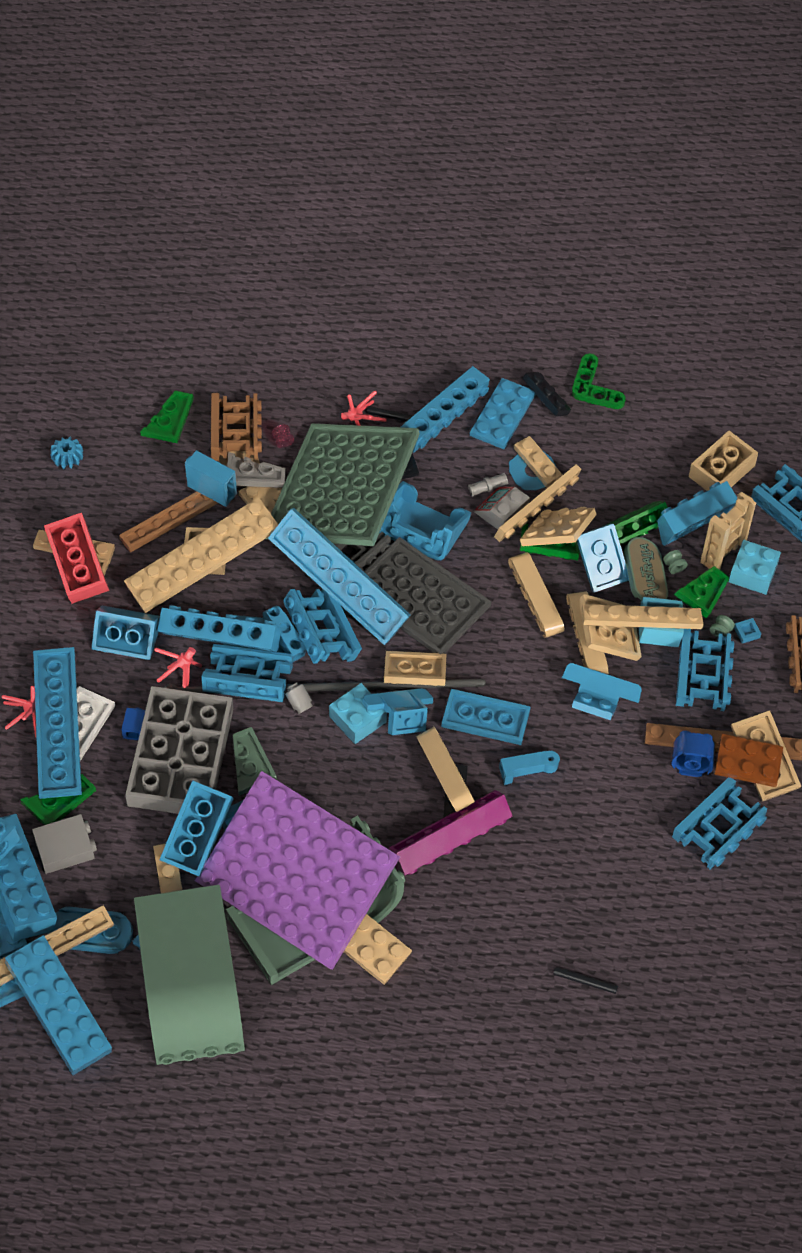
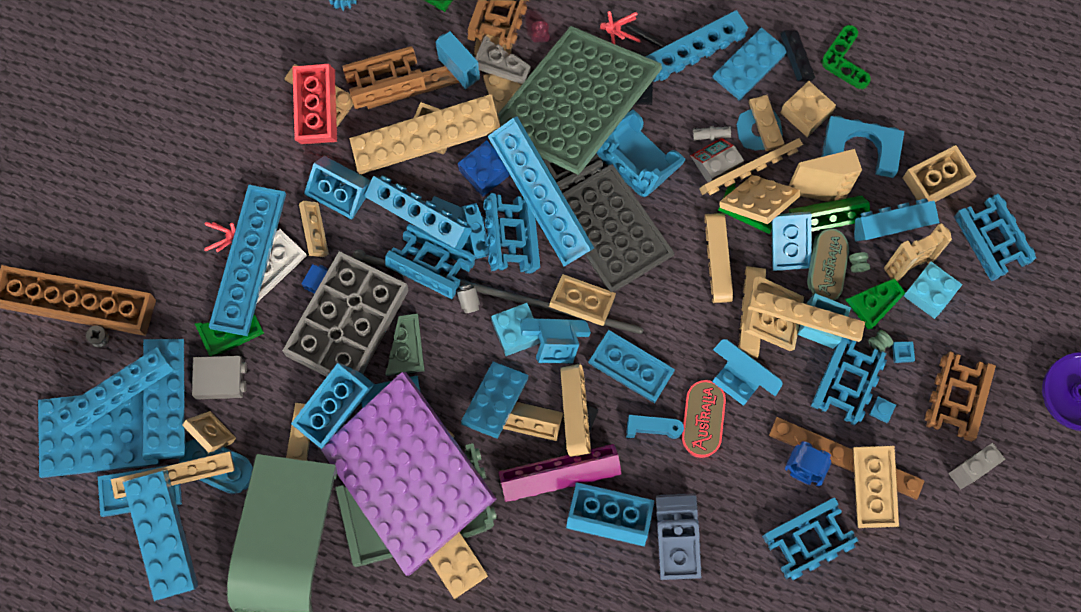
camera: 20 degrees right, 15 degrees up
(73, 895) = (209, 431): none -> tan plate
(114, 677) = (313, 228): none -> tan plate
(156, 517) = (385, 88): none -> medium nougat fence
(183, 661) = (375, 236): coral plant -> none
(271, 574) = (483, 168): none -> blue brick
(360, 782) = (494, 400): none -> dark azure plate
(392, 796) = (534, 421): none -> tan panel
(515, 856) = (610, 514): none -> dark azure slope
(574, 437) = (808, 109): none -> tan brick
(575, 745) = (703, 419): none -> dark tan tile
(591, 856) = (678, 536): none -> sand blue piece
(616, 486) = (828, 176): none -> tan slope
(660, 445) = (886, 140): none -> dark azure arch
(746, 688) = (882, 409): none -> dark azure plate
(748, 760) = (857, 488): dark orange plate -> none

